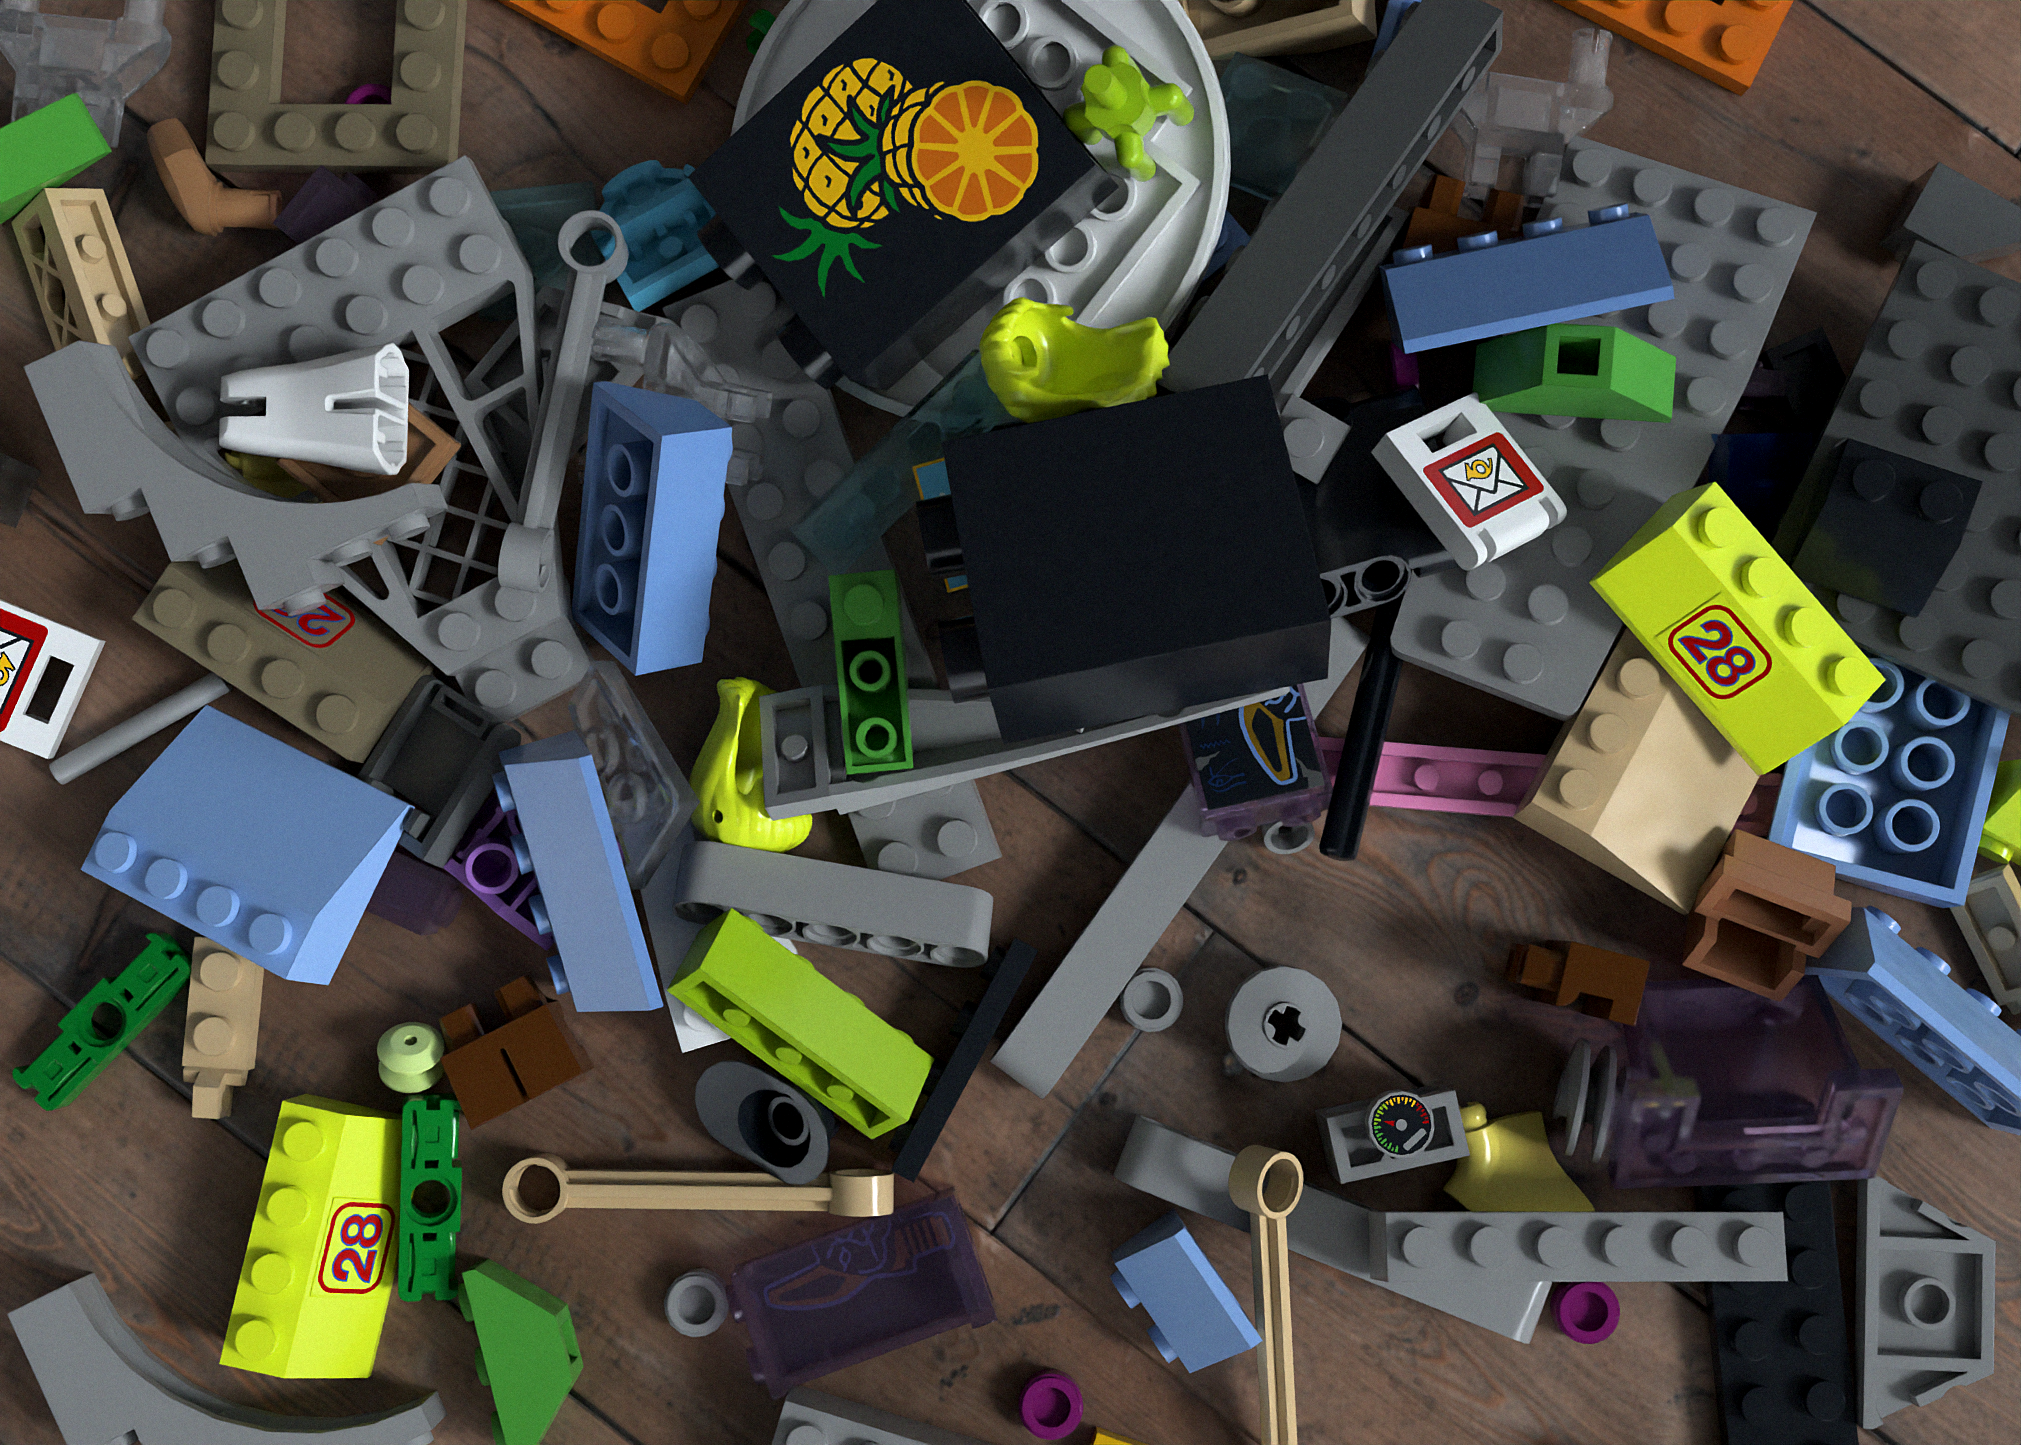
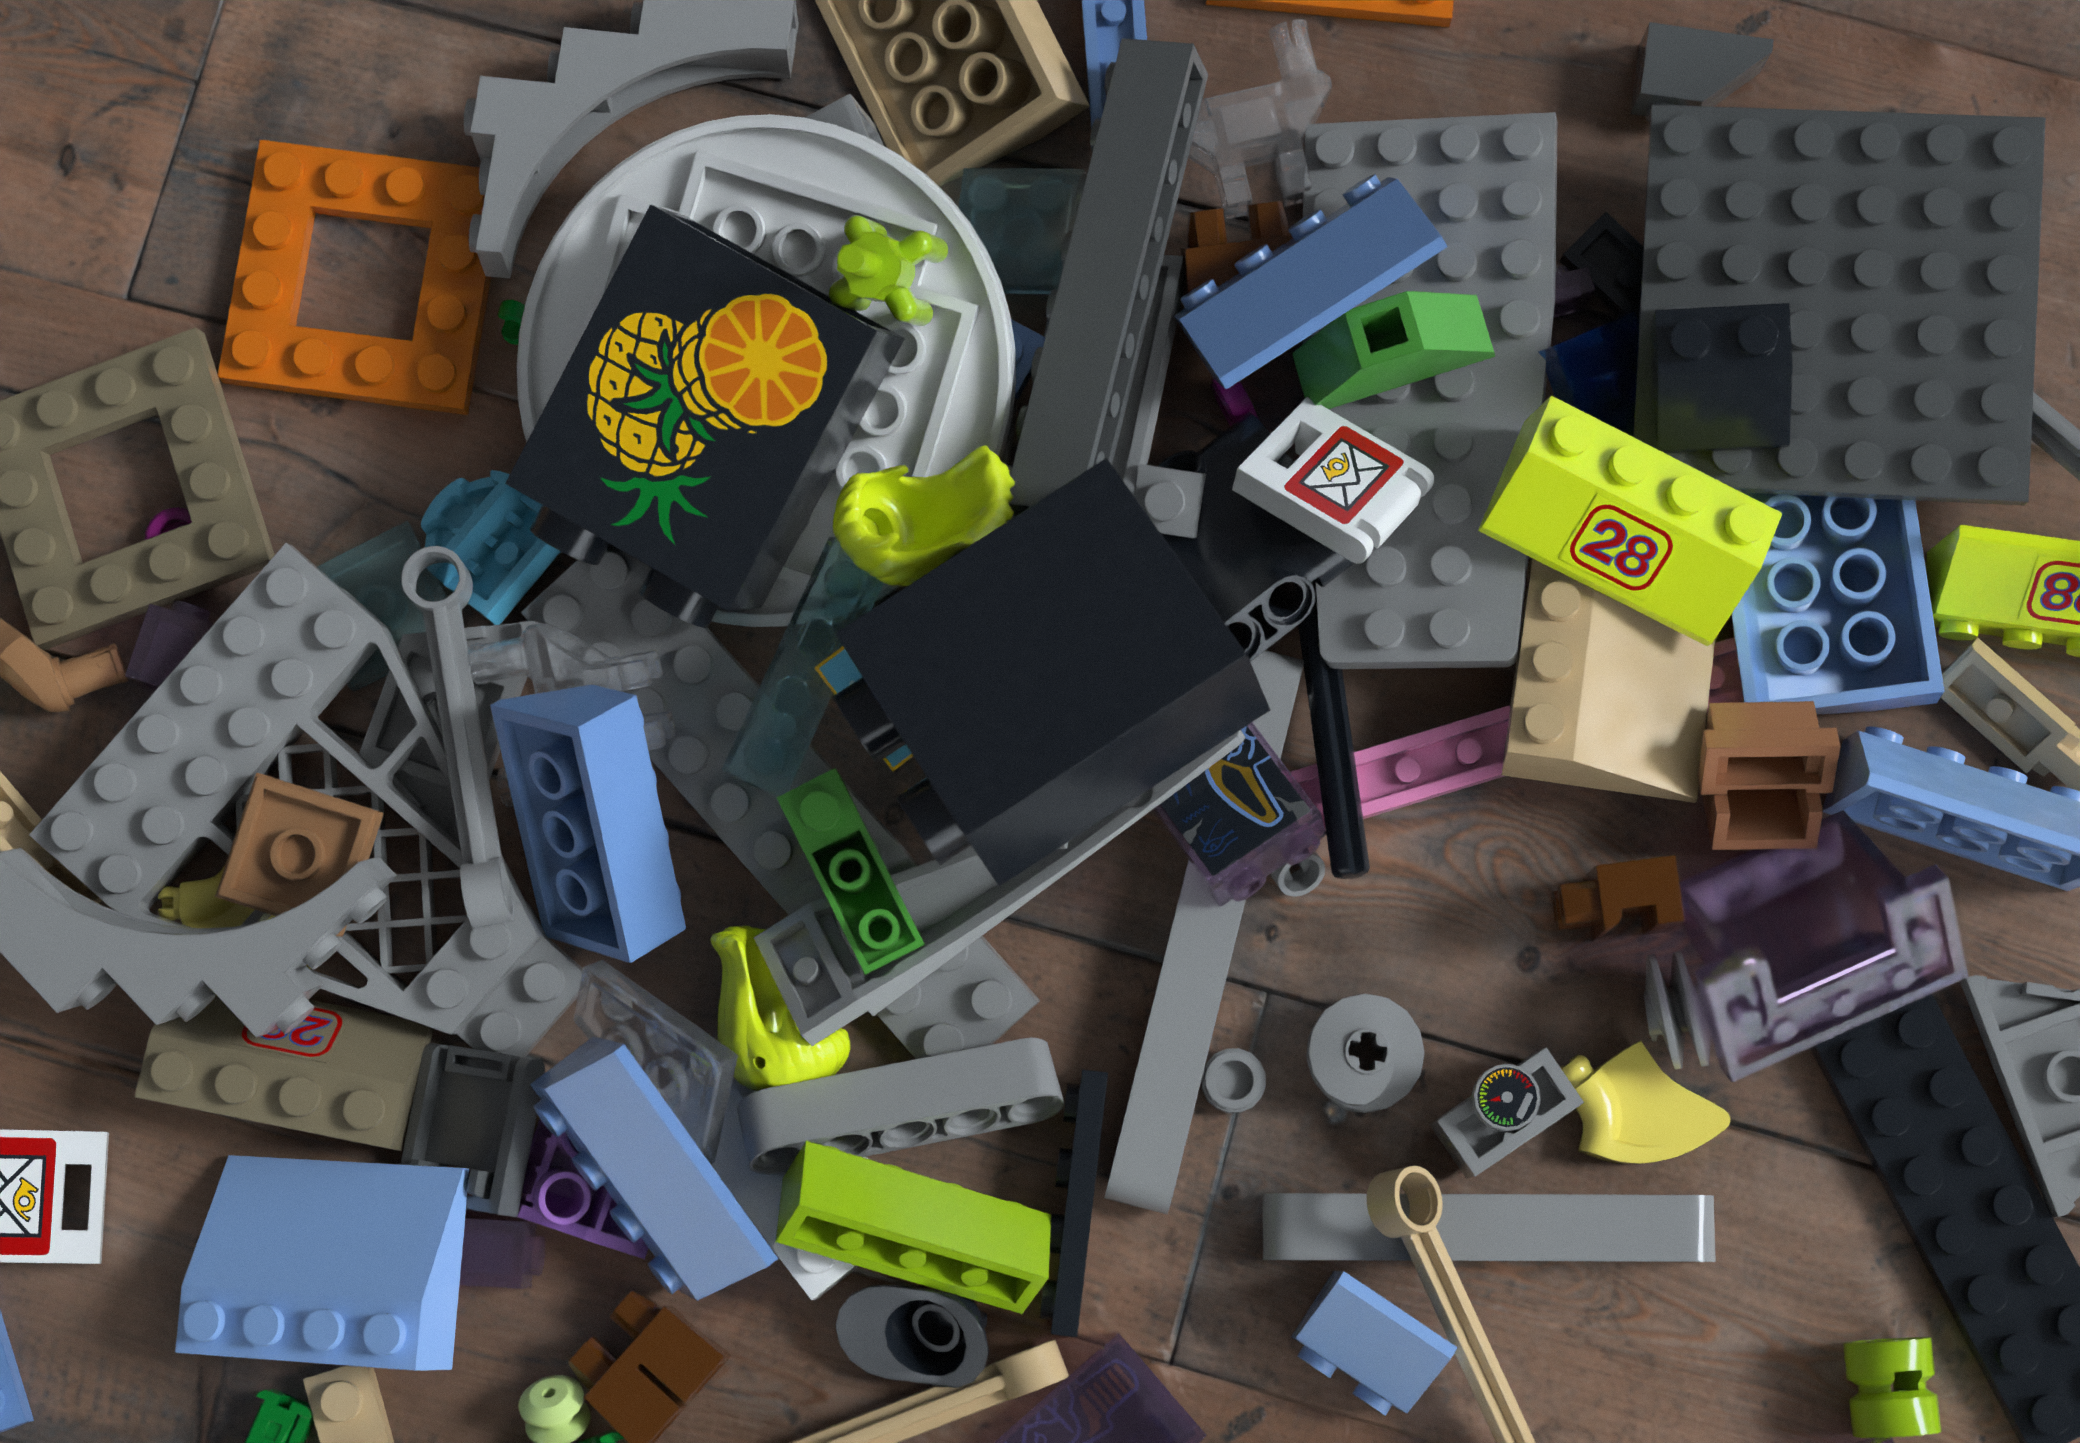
camera: 10 degrees left, 5 degrees down
(139, 727) = (173, 1200): light grey piece -> none
(324, 410) = (246, 829): white piece -> none
(1576, 1246) = (1715, 1147): light grey brick -> none
(1585, 1311) = (1757, 1211): magenta tile -> none

